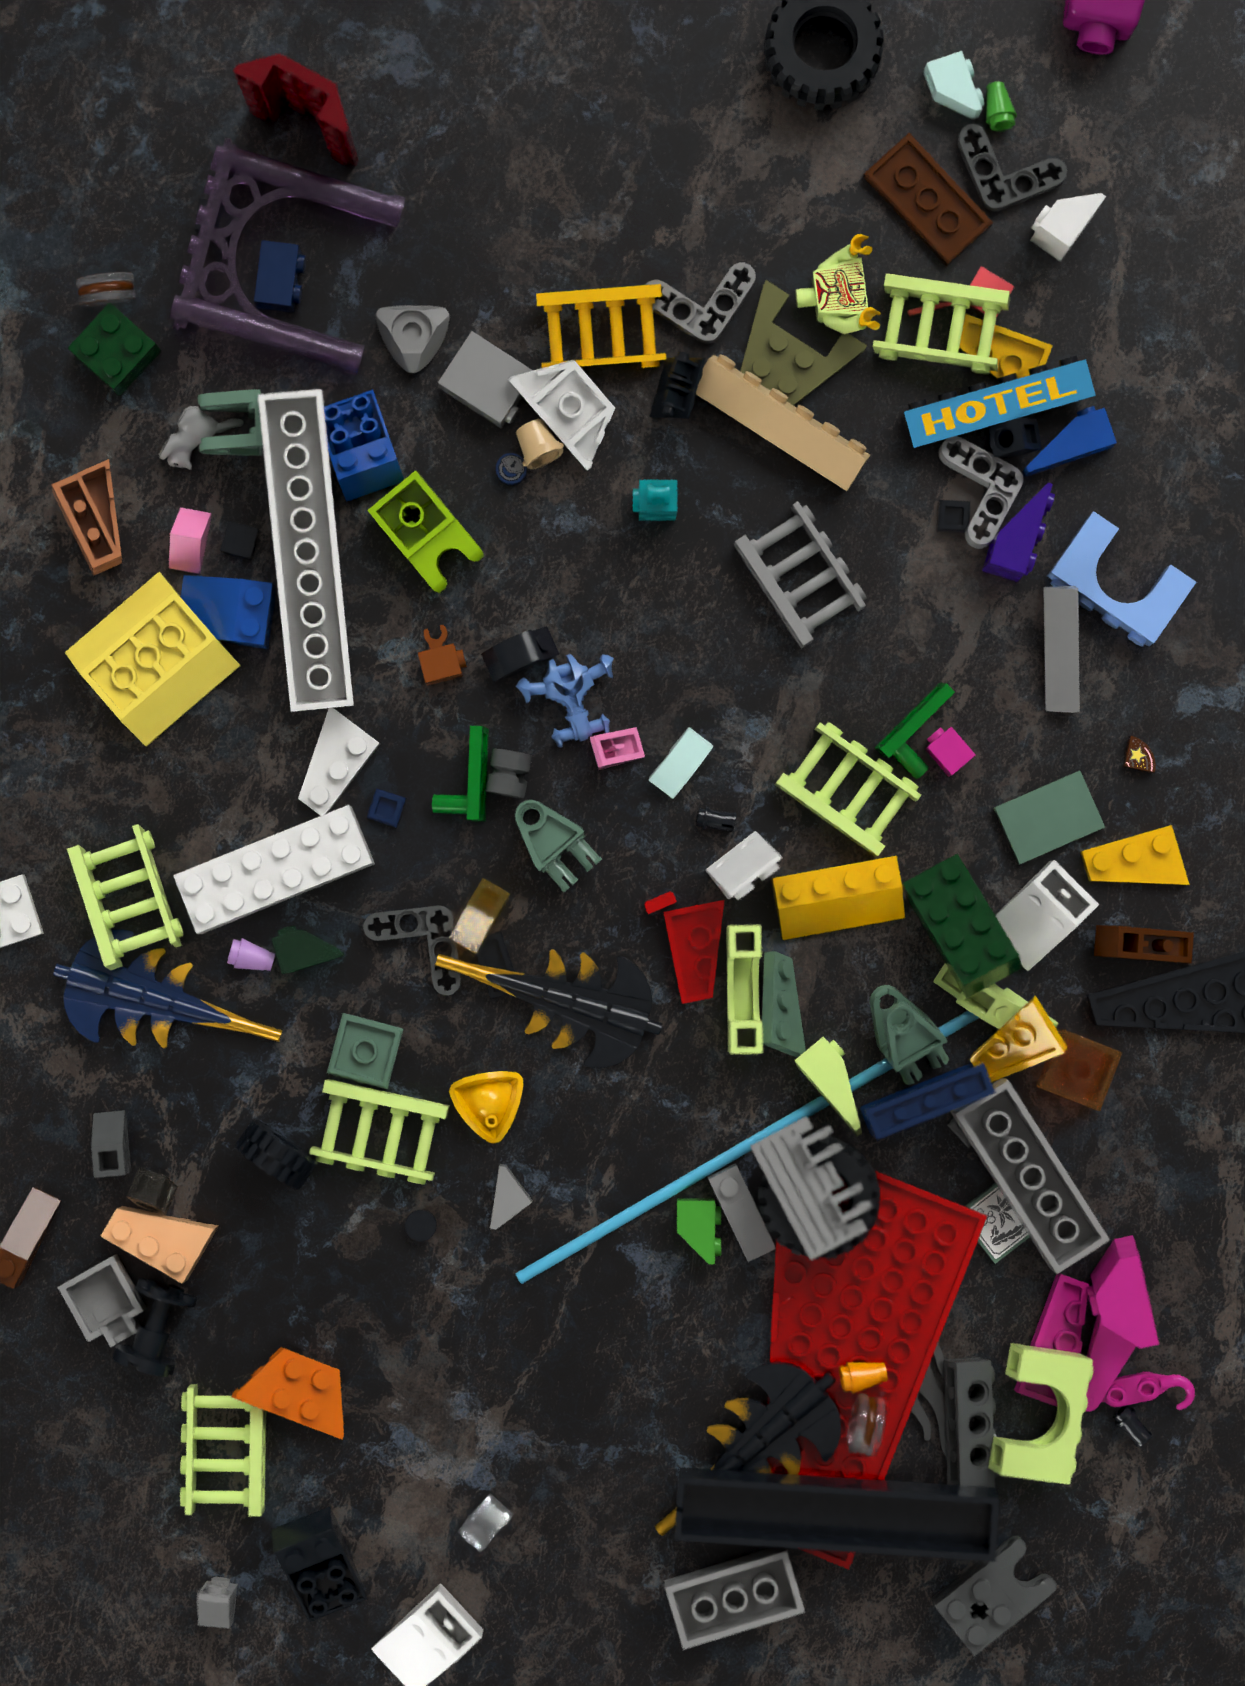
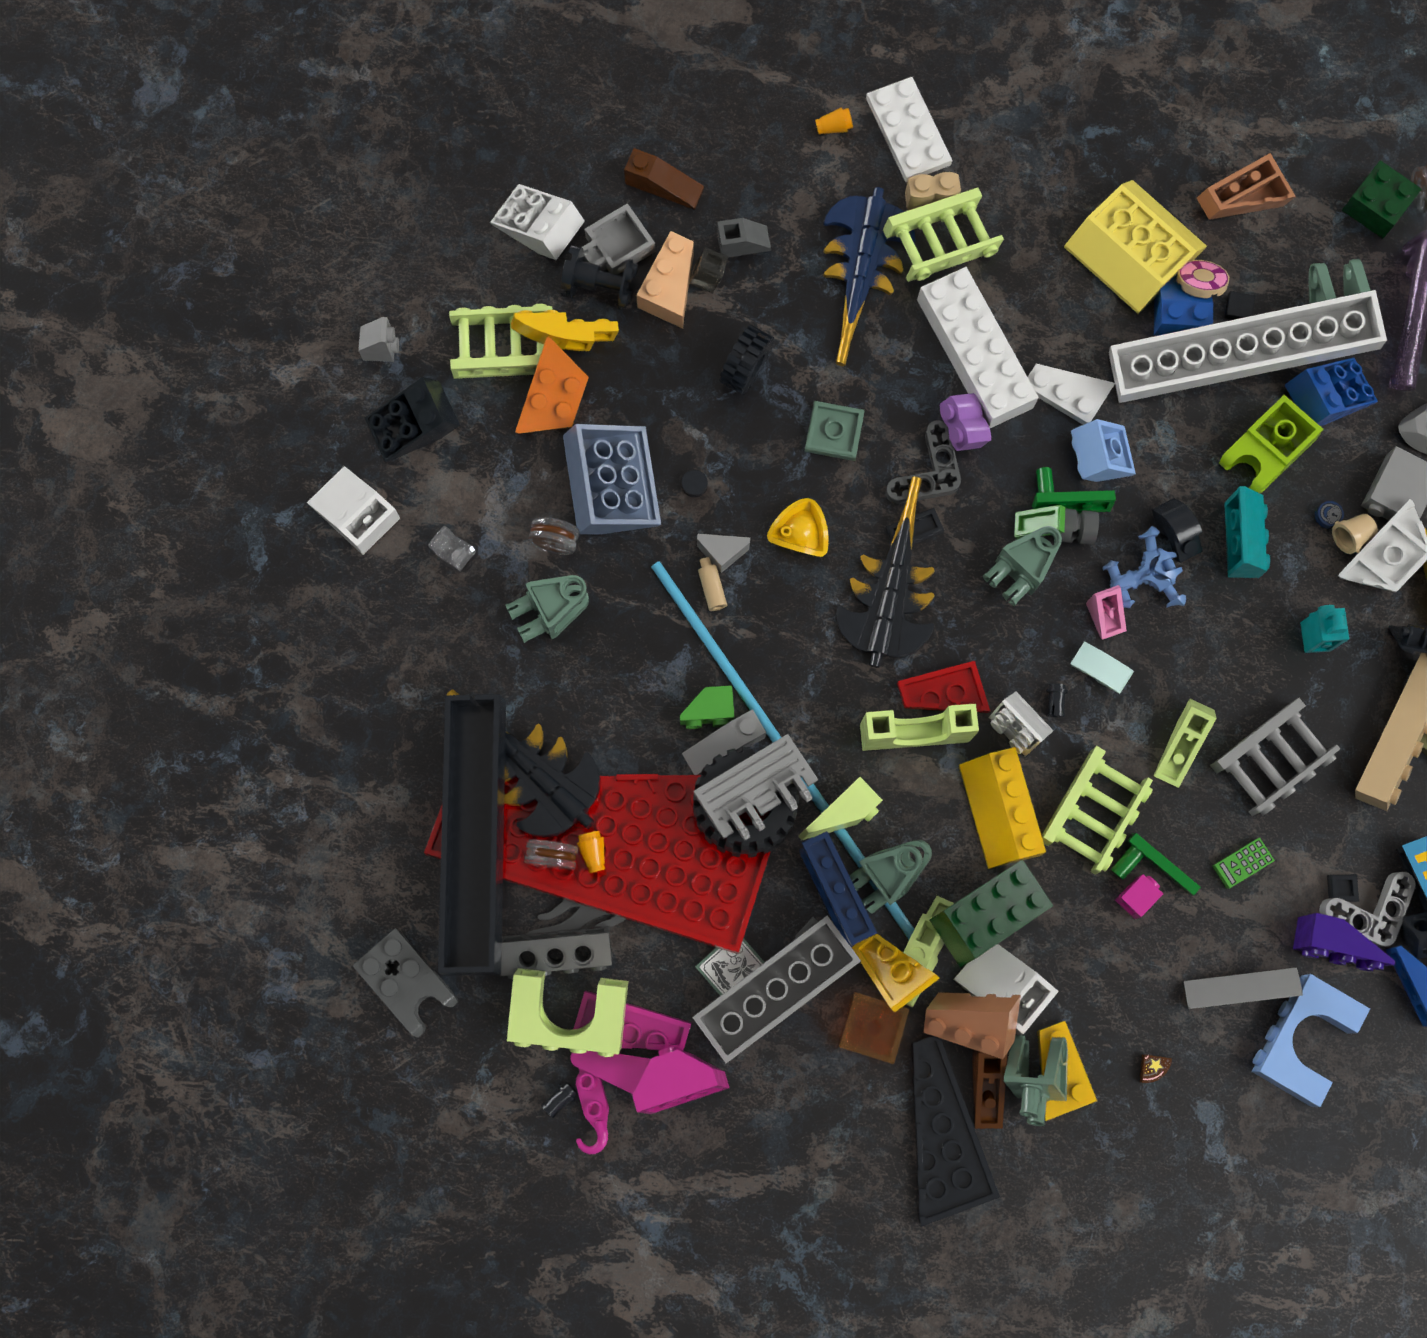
camera: 85 degrees right, 10 degrees down
(64, 913) = (927, 189): none -> tan brick
(67, 1398) = (538, 220): none -> white slope
(188, 540) = (1239, 264): bright pink slope -> none
(191, 428) = (1310, 251): light grey animal -> none
(207, 585) = (1203, 279): none -> tile
(217, 1386) = (567, 335): none -> yellow slope
(250, 956) = (903, 334): lavender cone -> none
(302, 950) = (912, 373): clear green slope -> none
(369, 894) = (965, 422): none -> medium lavender brick
(369, 1101) = (790, 459): yellowish green fence -> none
(386, 808) = (1035, 434): dark blue tile -> none
(410, 1325) = (611, 478): none -> sand blue slope
(416, 730) = (1102, 451): none -> light blue slope
(440, 661) = (1163, 467): dark orange brick -> none
(479, 916) = (957, 509): clear yellow slope -> none
(480, 1400) = (553, 535): none -> clear head
(500, 818) = (1034, 519): none -> bright green tile
(532, 572) = (1246, 534): none -> teal slope
(549, 1213) = (711, 585): none -> tan cylinder
(566, 1407) = (552, 603): none -> sand green piece
(660, 902) = (981, 657): red tile -> none
(733, 1596) = (397, 756): light grey brick -> none
(775, 676) = (1185, 742): none -> yellowish green slope
(780, 1006) = (904, 763): sand green wing -> none
(917, 626) = (1243, 863): none -> bright green tile
(1049, 817) = (1090, 990): sand green tile -> none
(1082, 958) = (974, 1022): none -> nougat wedge
(1150, 875) = (1040, 1090): none -> sand green piece

